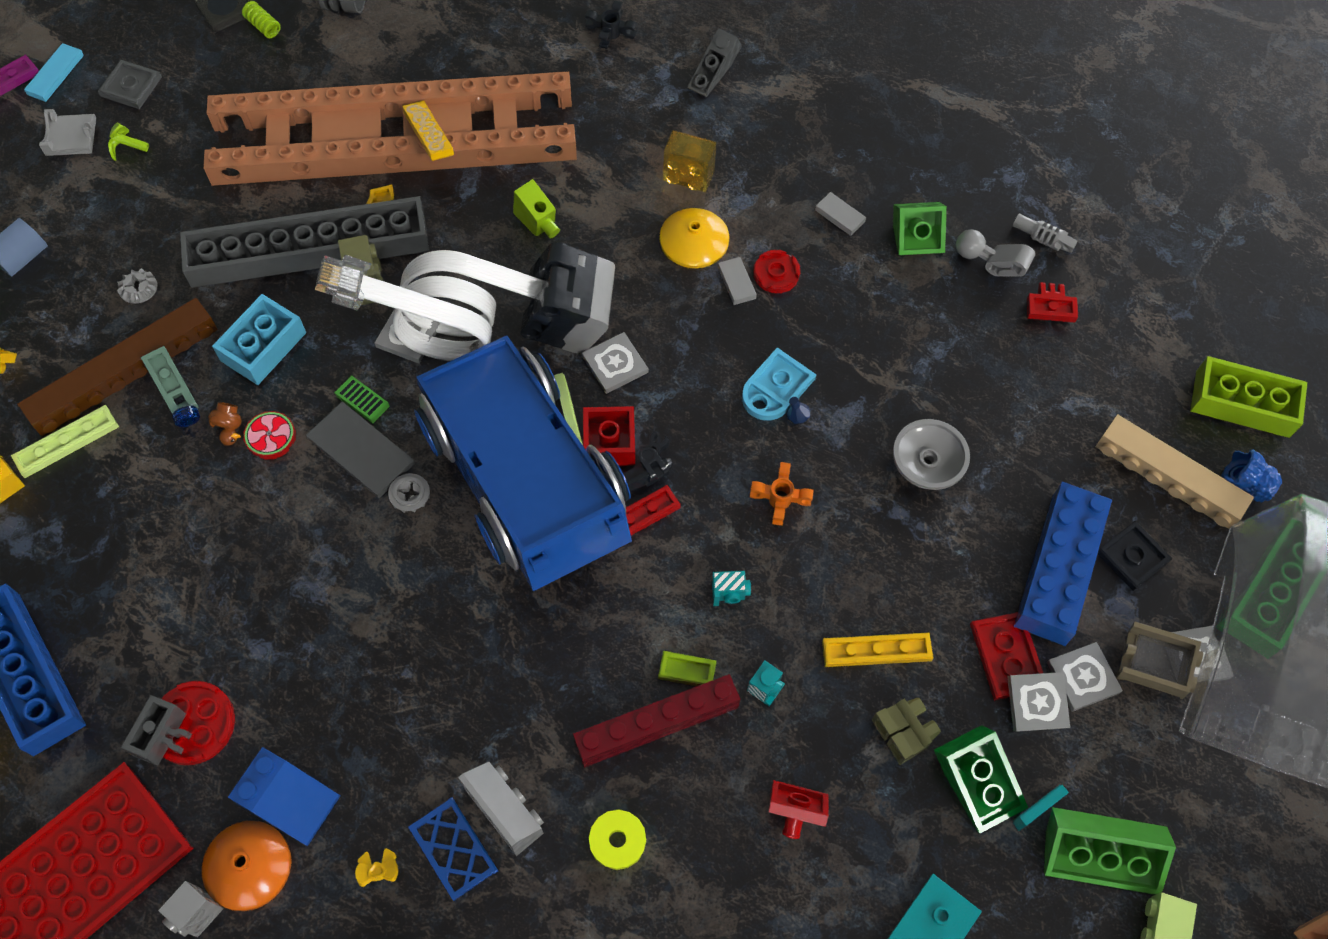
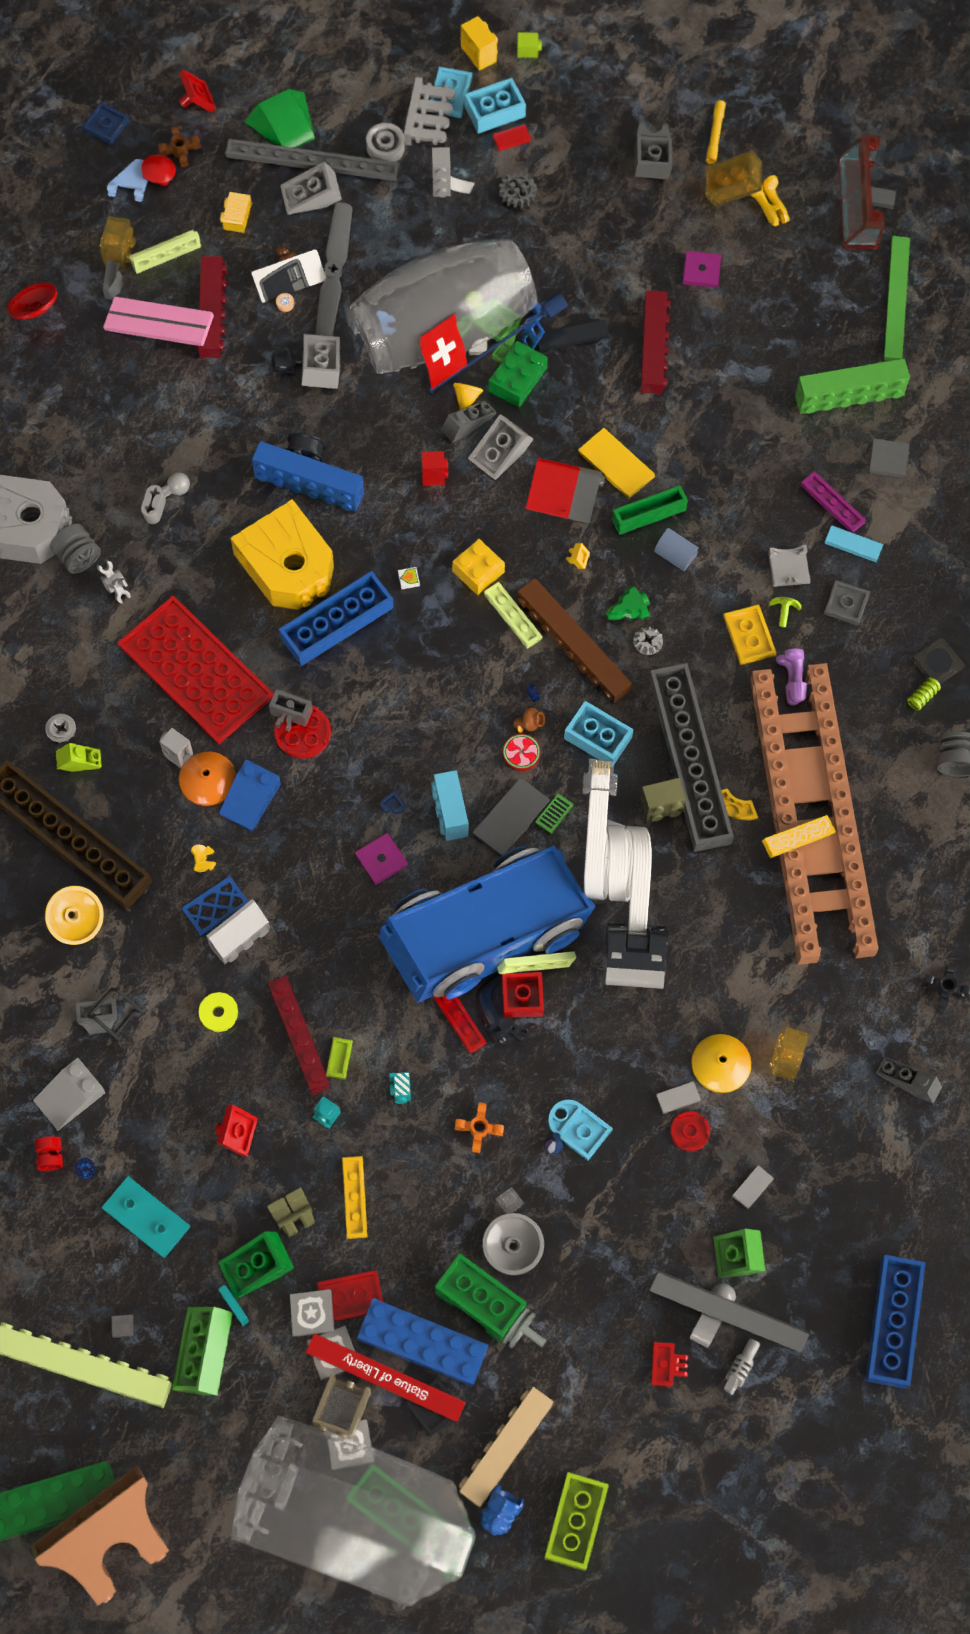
camera: 90 degrees right, 5 degrees up
(83, 299) = (630, 605): none -> green rock
(151, 180) = (749, 634): none -> yellow tile
(168, 378) = (559, 676): sand green plate -> none
(236, 132) = (796, 688): none -> medium lavender piece
(322, 597) = (392, 803): none -> dark blue tile
(337, 514) = (450, 805): none -> medium azure brick
(402, 613) = (381, 859): none -> magenta tile
(404, 484) = (470, 848): light grey gear -> none
(535, 210) = (736, 924): lime torso -> none
(615, 362) = (594, 1000): light grey tile -> none
(871, 464) = (509, 1201): none -> clear tile
(983, 90) = (895, 1322): none -> blue brick
(990, 236) = (729, 1311): none -> dark grey tile
(1010, 483) = (486, 1302): none -> green piece
(1110, 611) = (385, 1377): none -> red tile

